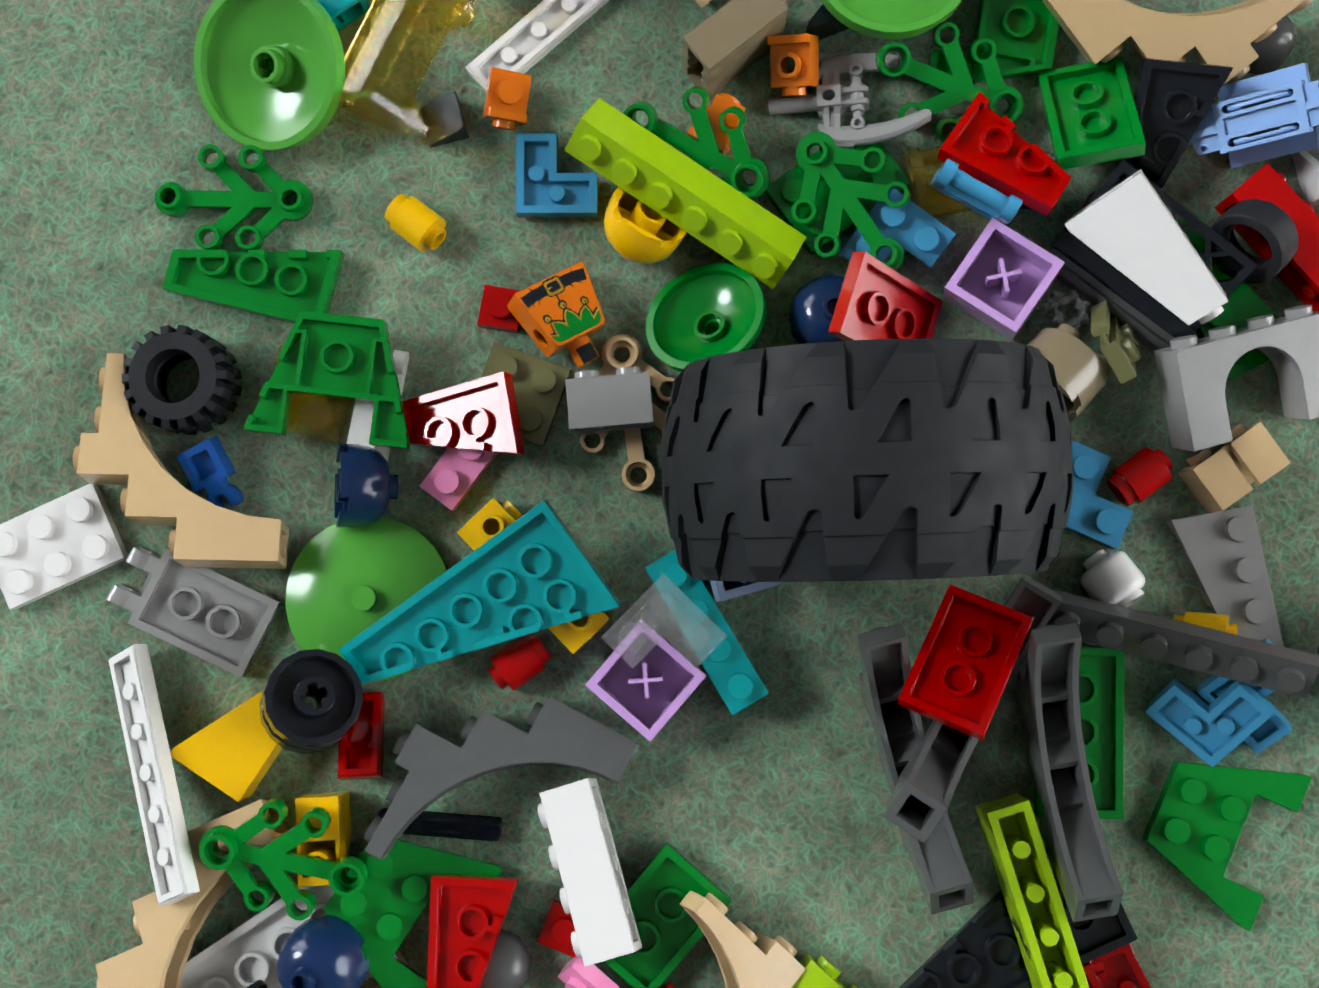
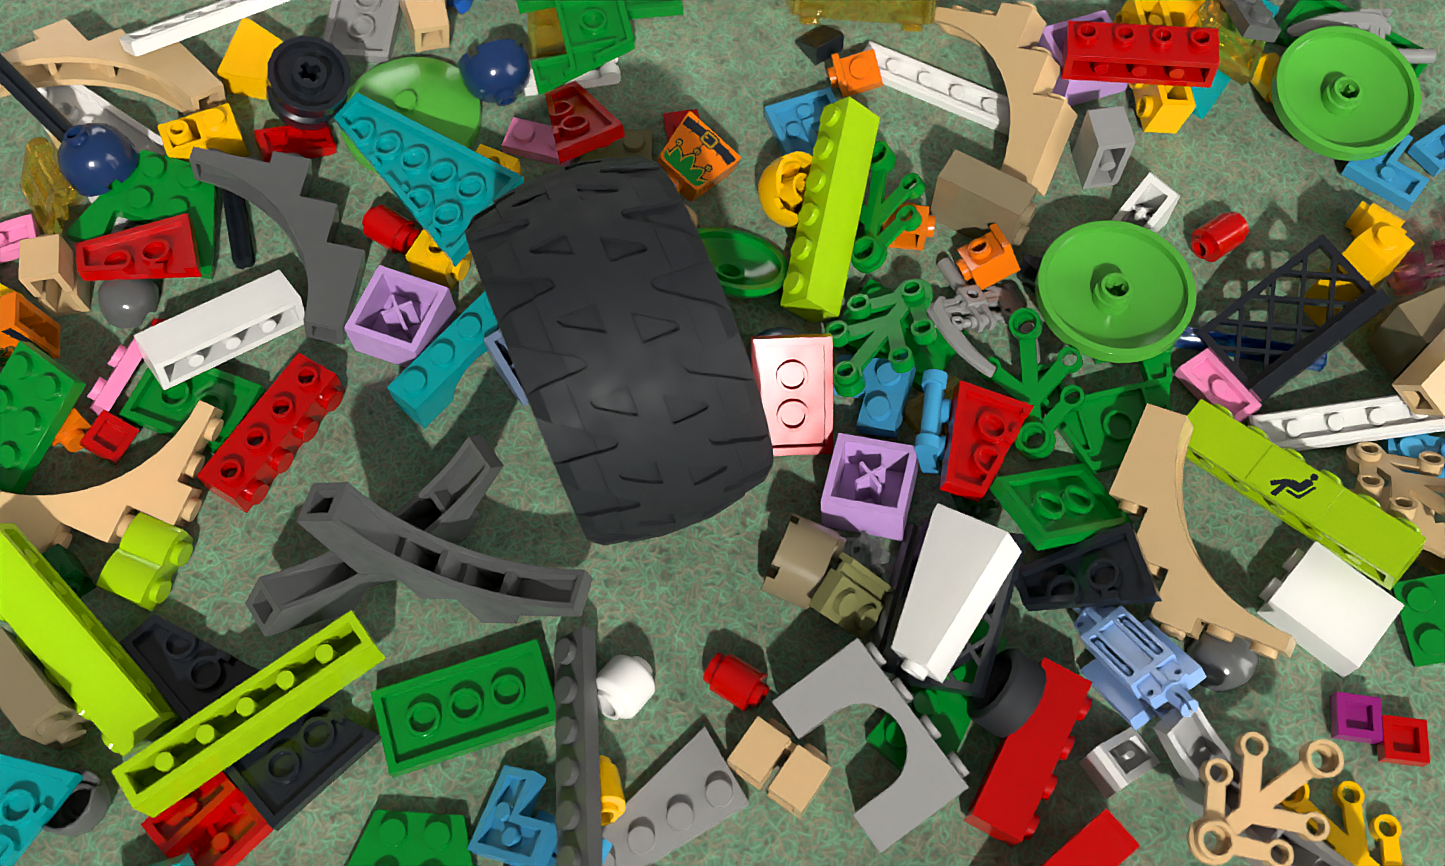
camera: 65 degrees right, 20 degrees down
(277, 860) = (173, 65): green plant -> none
(416, 222) = (727, 47): yellow brick -> none
(667, 614) = (448, 294): clear brick -> none
(726, 846) = (272, 433): none -> red brick
(965, 662) = (487, 538): red plate -> none
(1058, 764) = (417, 675): dark grey arch -> none
(1090, 514) = (688, 632): dark azure plate -> none

